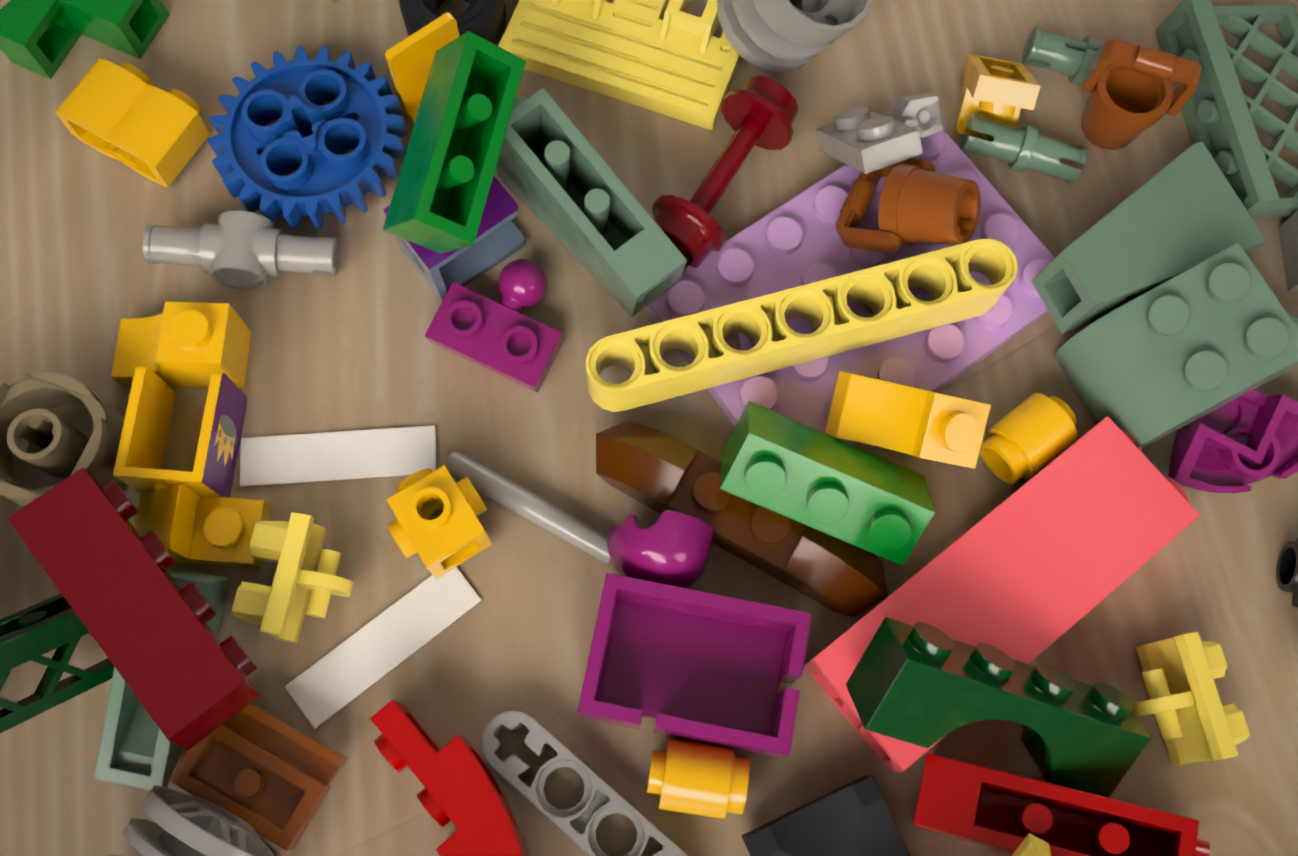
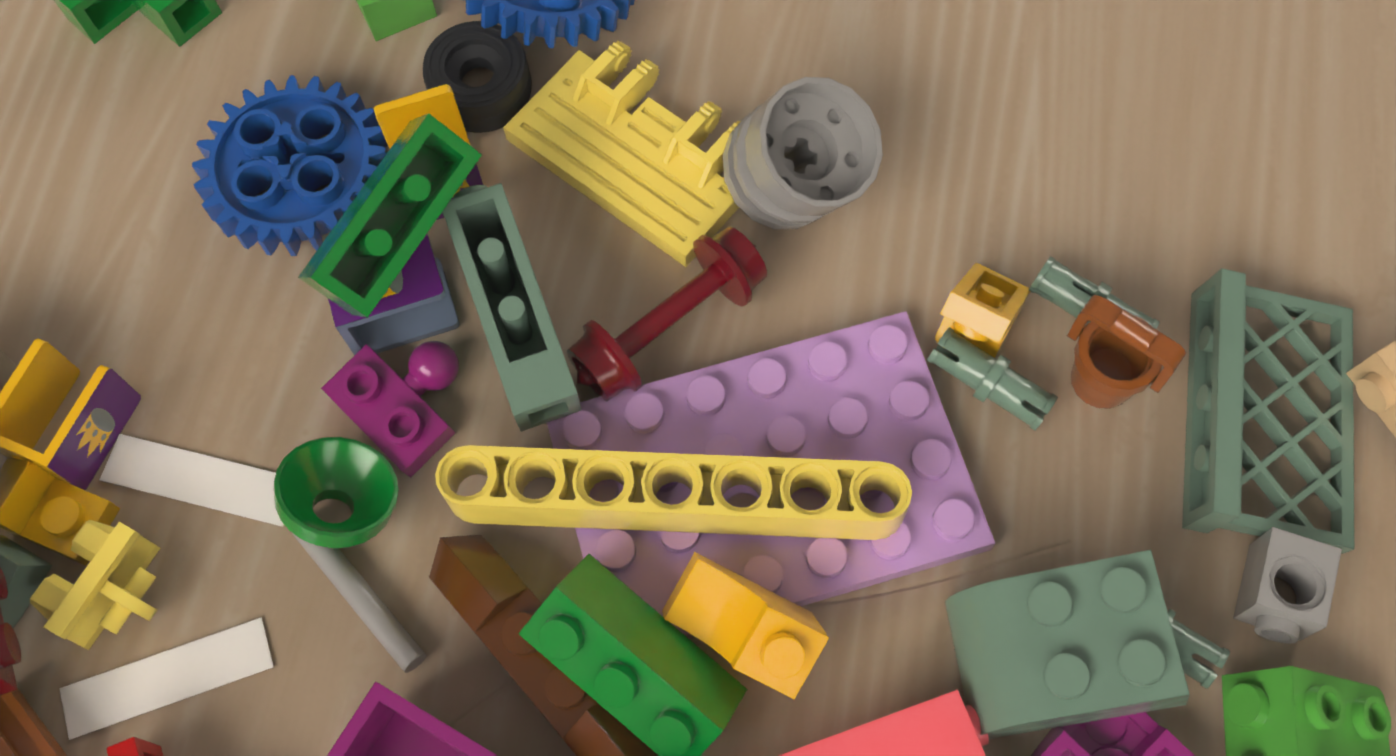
camera: 25 degrees right, 5 degrees down
(134, 121) = (143, 105): yellow brick -> none
(184, 345) = (102, 331): yellow arch -> none
(241, 250) = (188, 255): light grey pin -> none
(448, 538) = (253, 575): yellow brick -> none
(487, 405) = (339, 471): none -> green piece
(666, 553) = (451, 681): magenta hair -> none
(876, 140) = (831, 325): light grey hinge -> none
(912, 208) = (829, 405): dark orange piece -> none
(1029, 438) = (876, 684): yellow brick -> none
(1146, 240) = (1081, 513): sand green slope -> none

